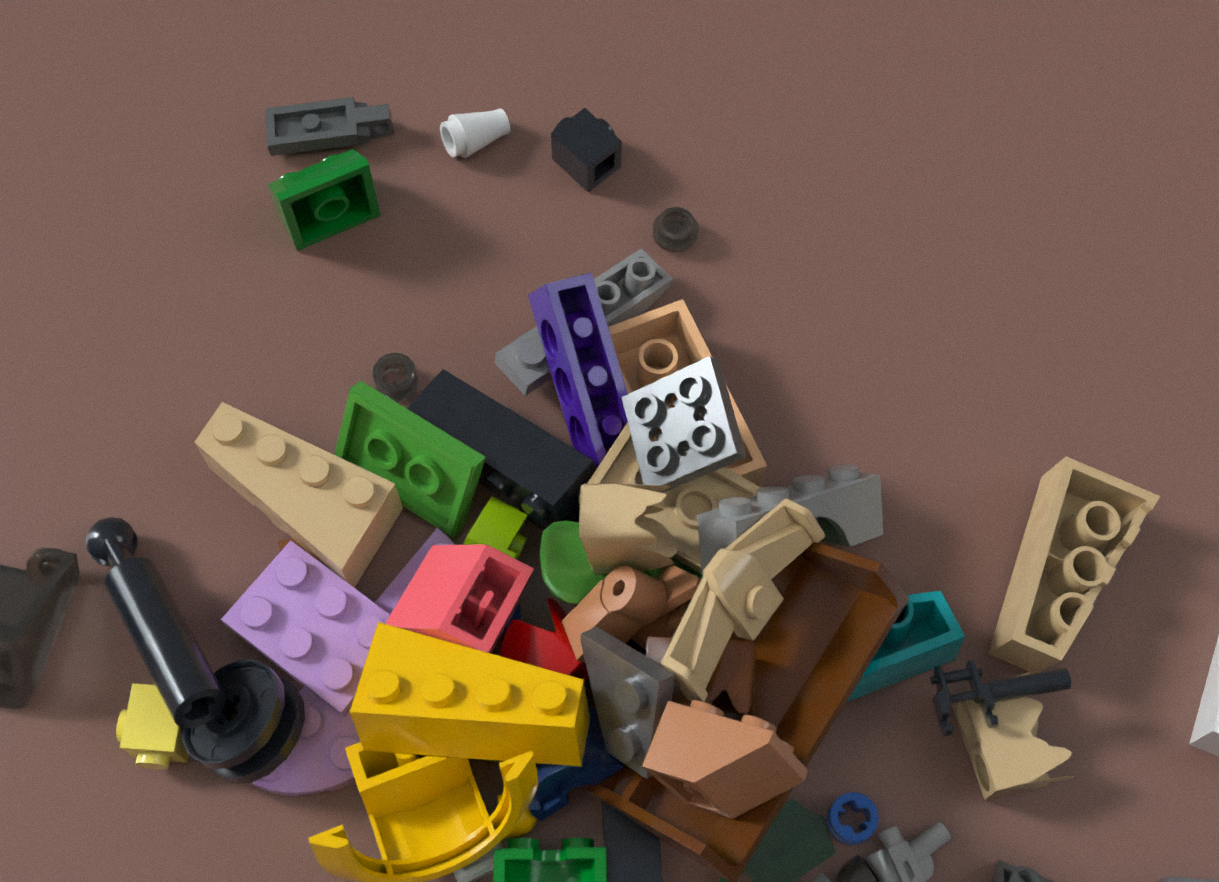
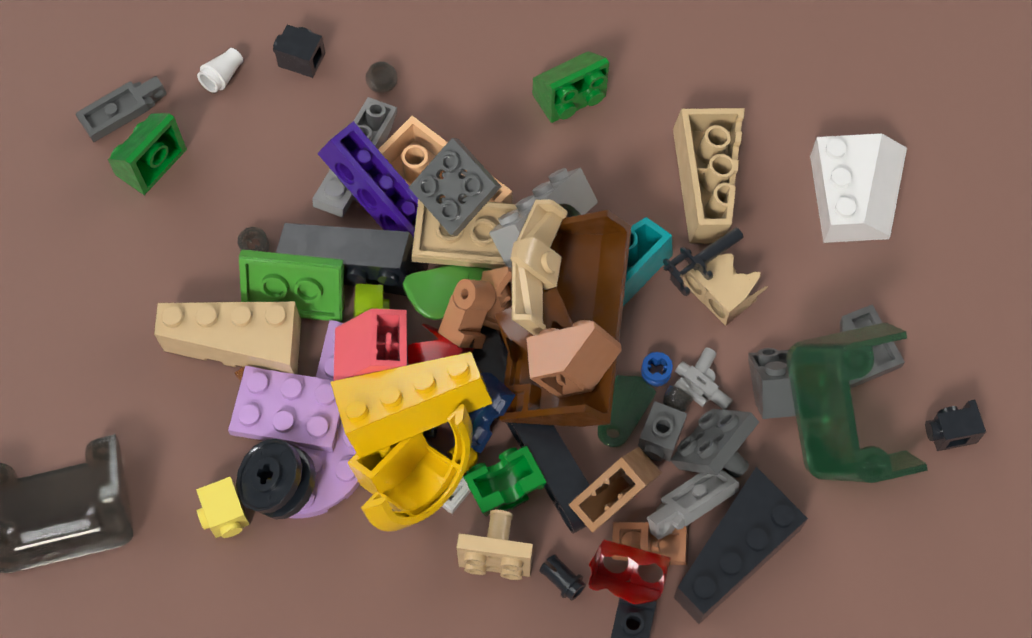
camera: 25 degrees left, 0 degrees up
(156, 625) = (190, 448): black piece -> none
(618, 532) = (447, 260): tan piece -> none
(628, 695) = (501, 351): flat silver wing -> none
(926, 353) = (572, 86): none -> green slope

